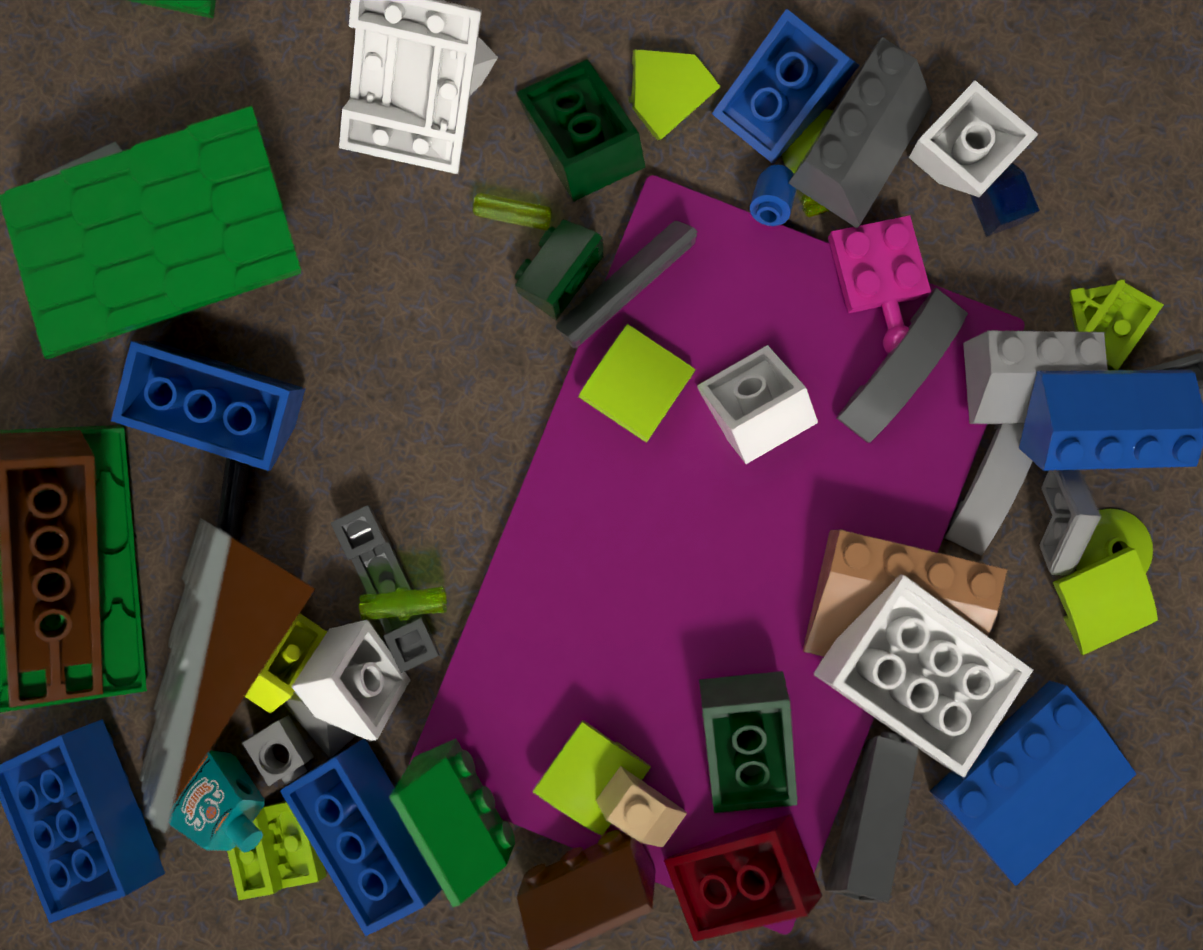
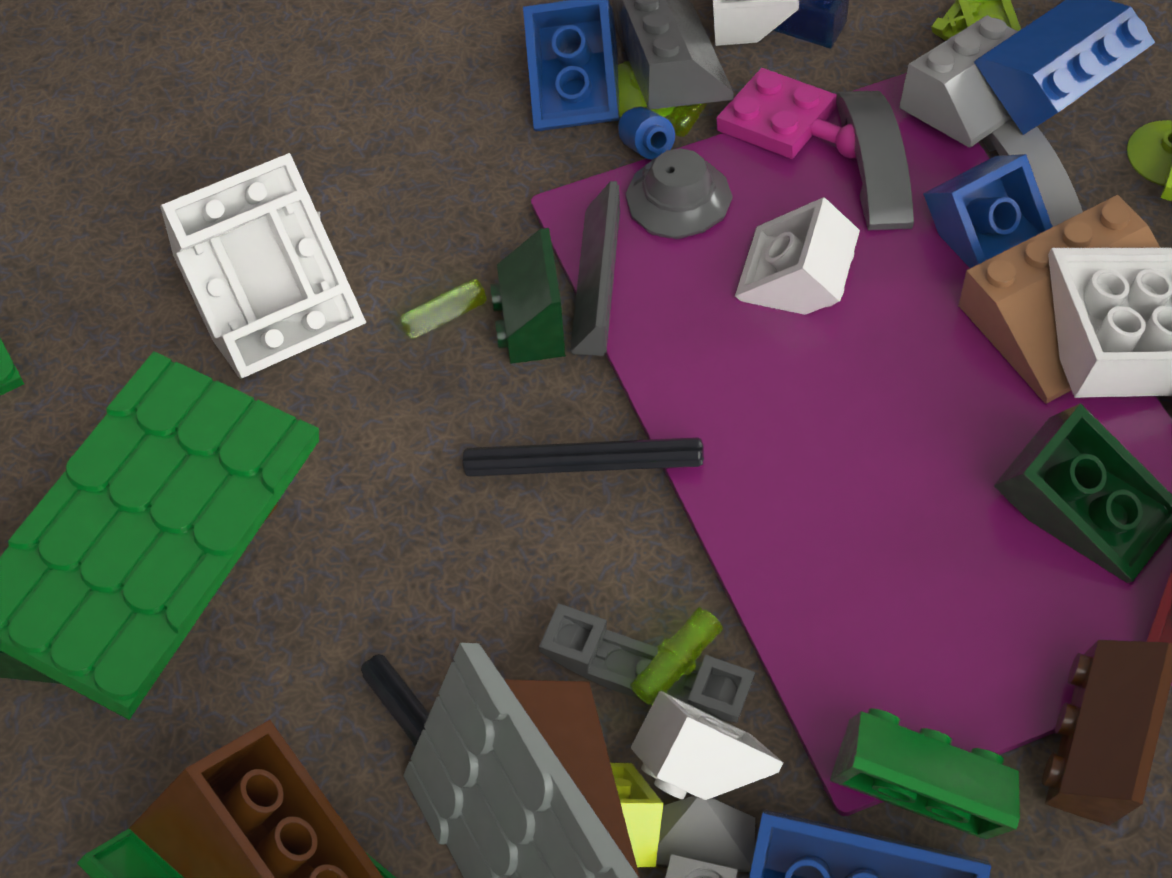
camera: 50 degrees left, 30 degrees down
(206, 403) = (318, 646): blue slope -> none
(486, 413) = (583, 457): none -> black axle
(582, 130) = (444, 208): dark green slope -> none
(583, 772) = (1001, 644): lime slope -> none
(636, 383) = (686, 328): lime slope -> none
(639, 809) = (1065, 614): tan slope -> none
(668, 88) = (480, 137): lime slope -> none
(747, 285) = (678, 195): none -> dark grey hat
(922, 489) = (989, 208): none -> blue slope
(1071, 521) = (1121, 139): light grey brick -> none

